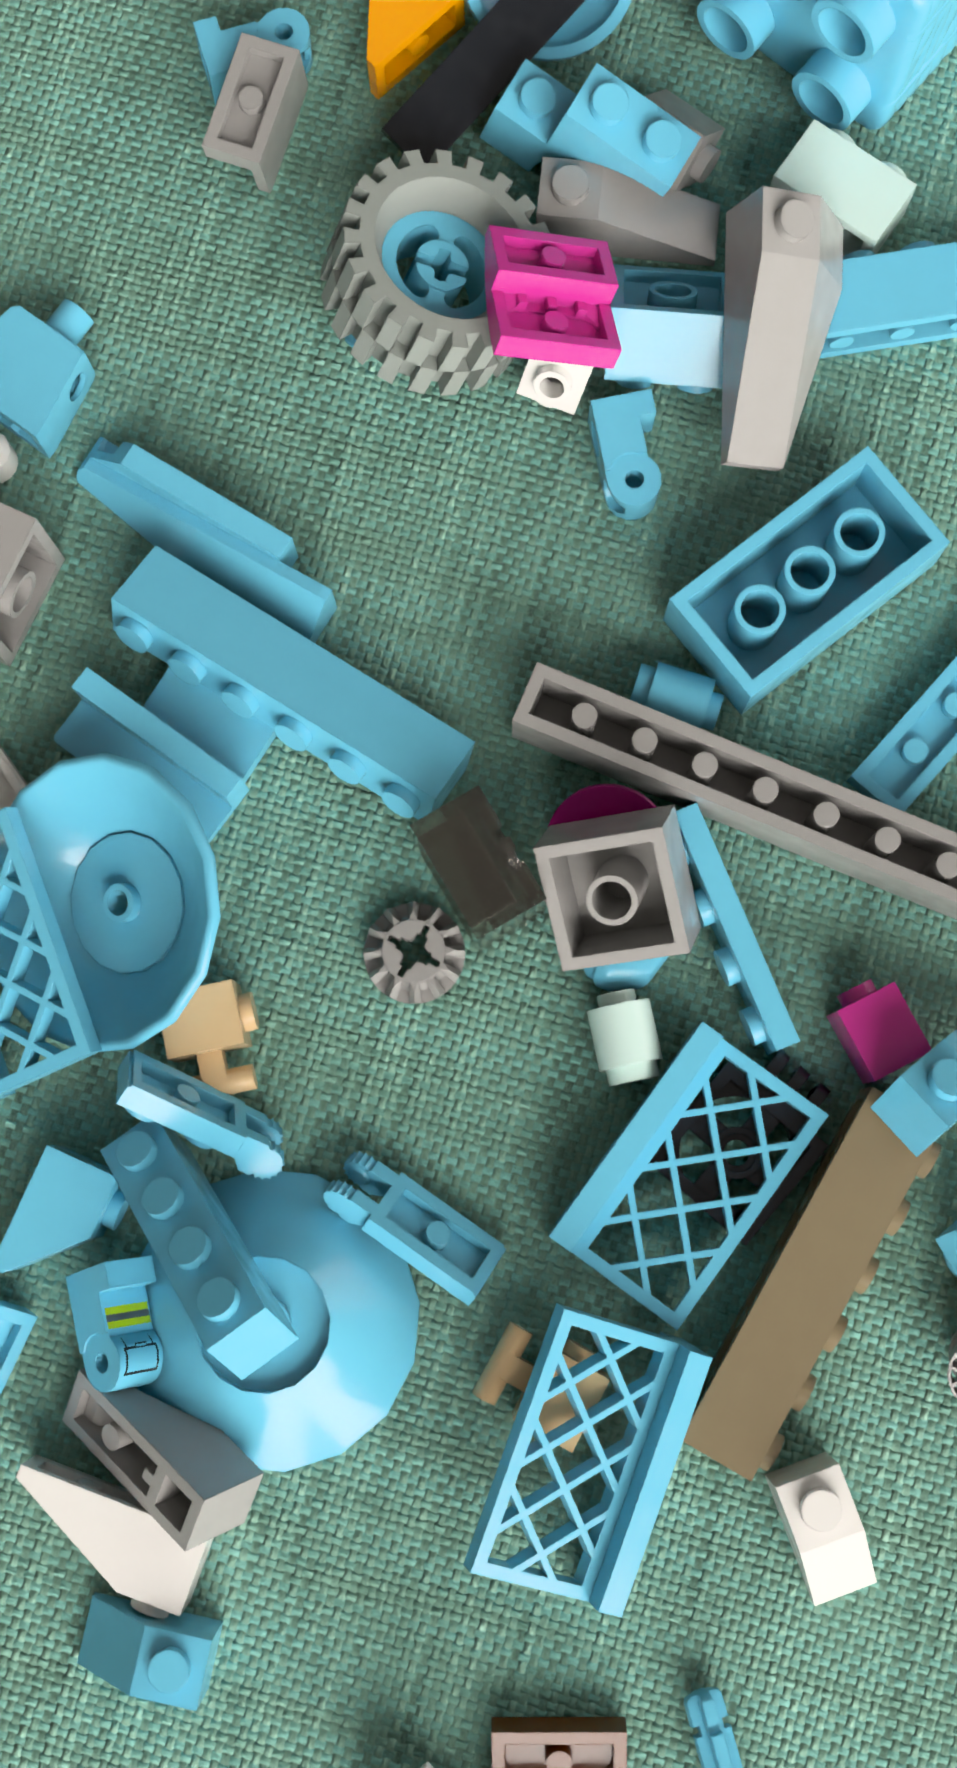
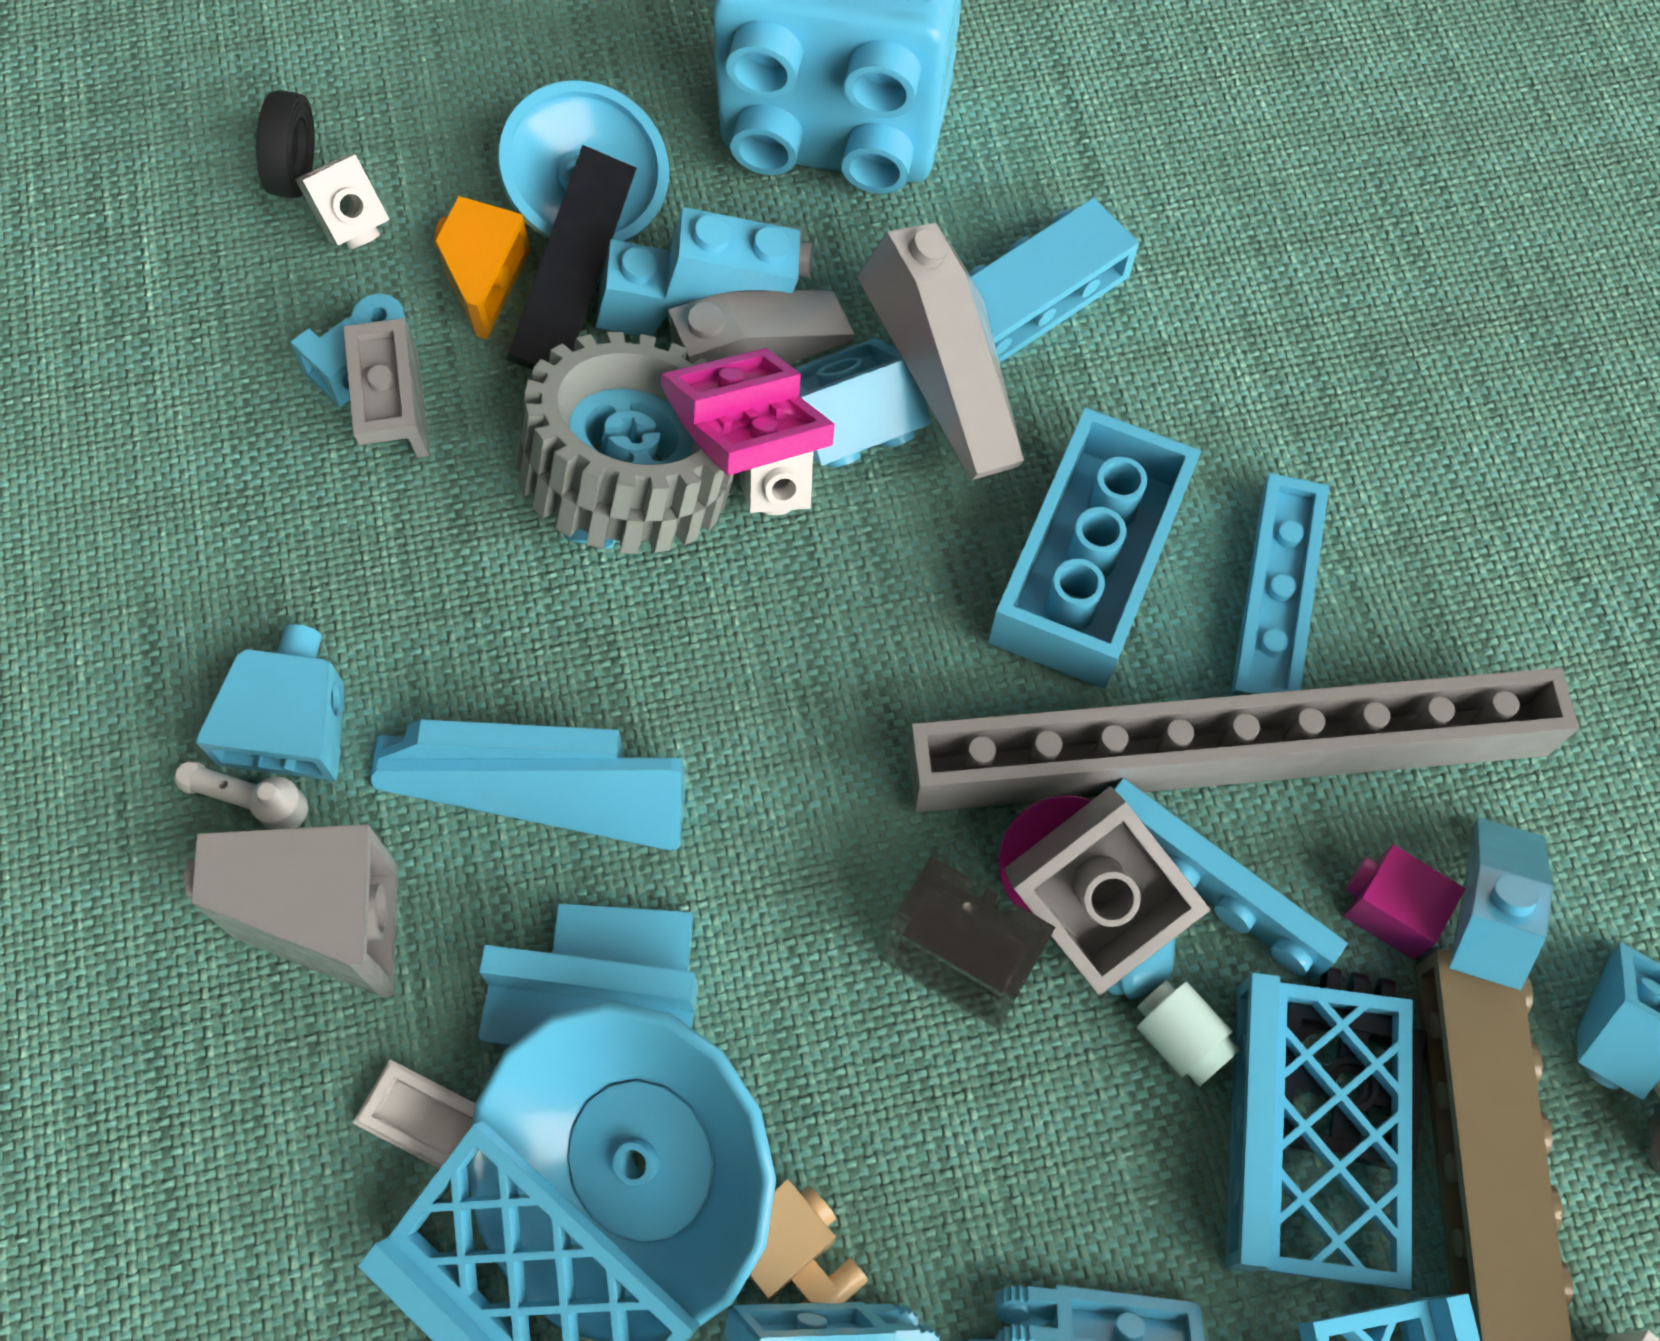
camera: 35 degrees left, 15 degrees down
(290, 685) = (685, 867): medium azure brick -> none
(423, 981) = (917, 1082): light grey gear -> none
(626, 472) = (871, 521): medium azure leg -> none
(678, 694) = (1043, 692): medium azure brick -> none
(858, 188) = (959, 216): light aqua brick -> none

